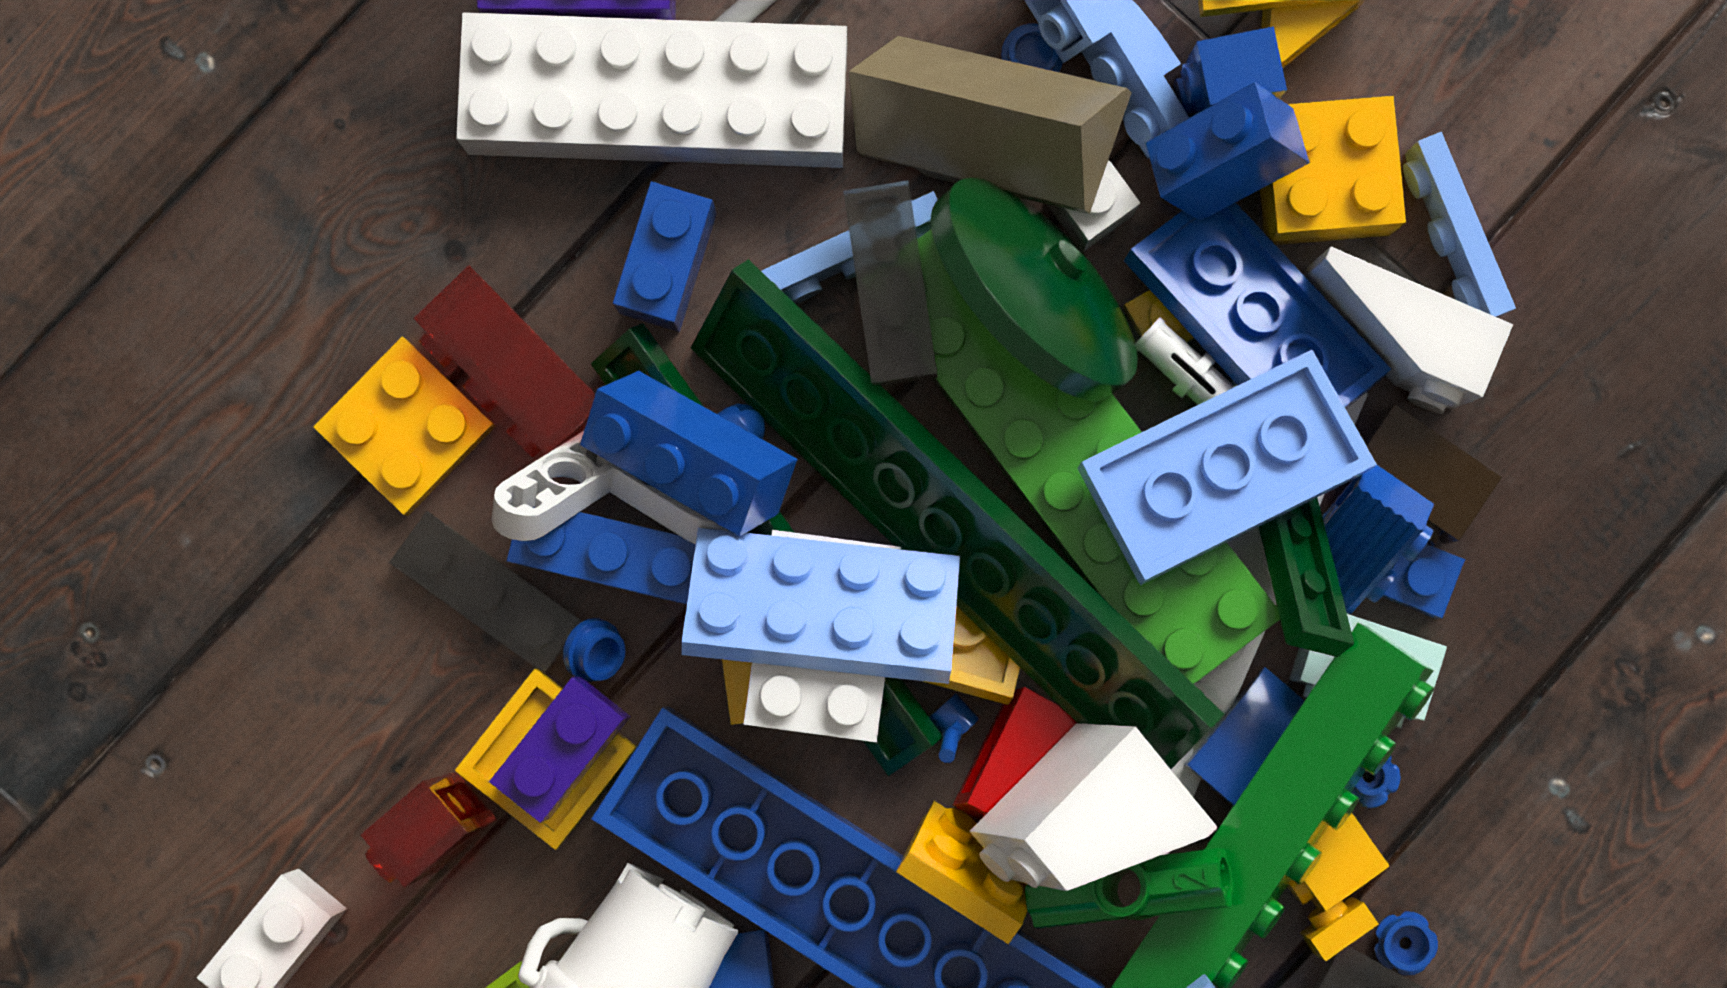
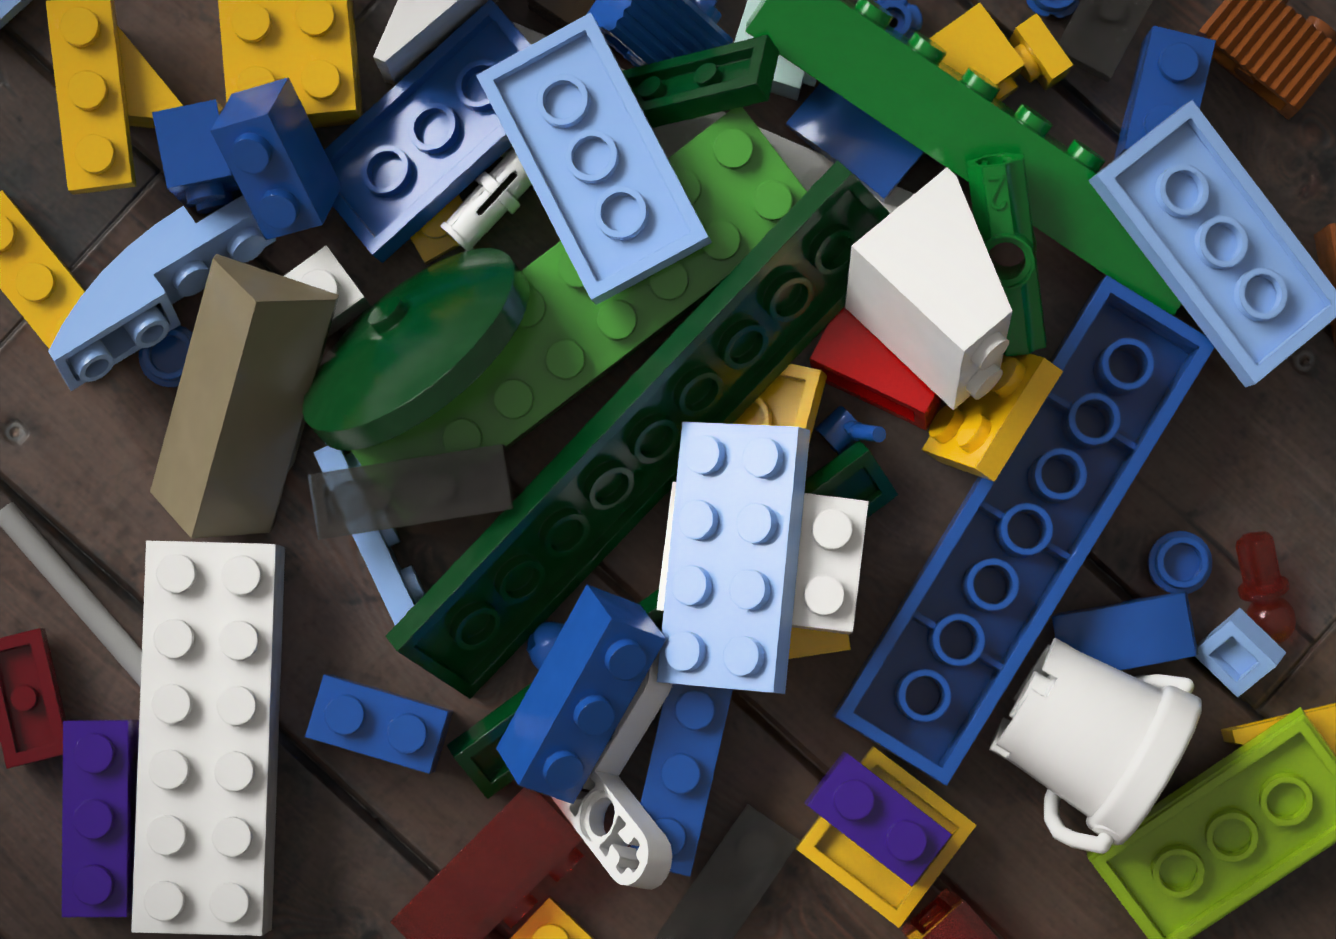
camera: 90 degrees left, 0 degrees up
(594, 650) = (777, 790): blue plate -> none

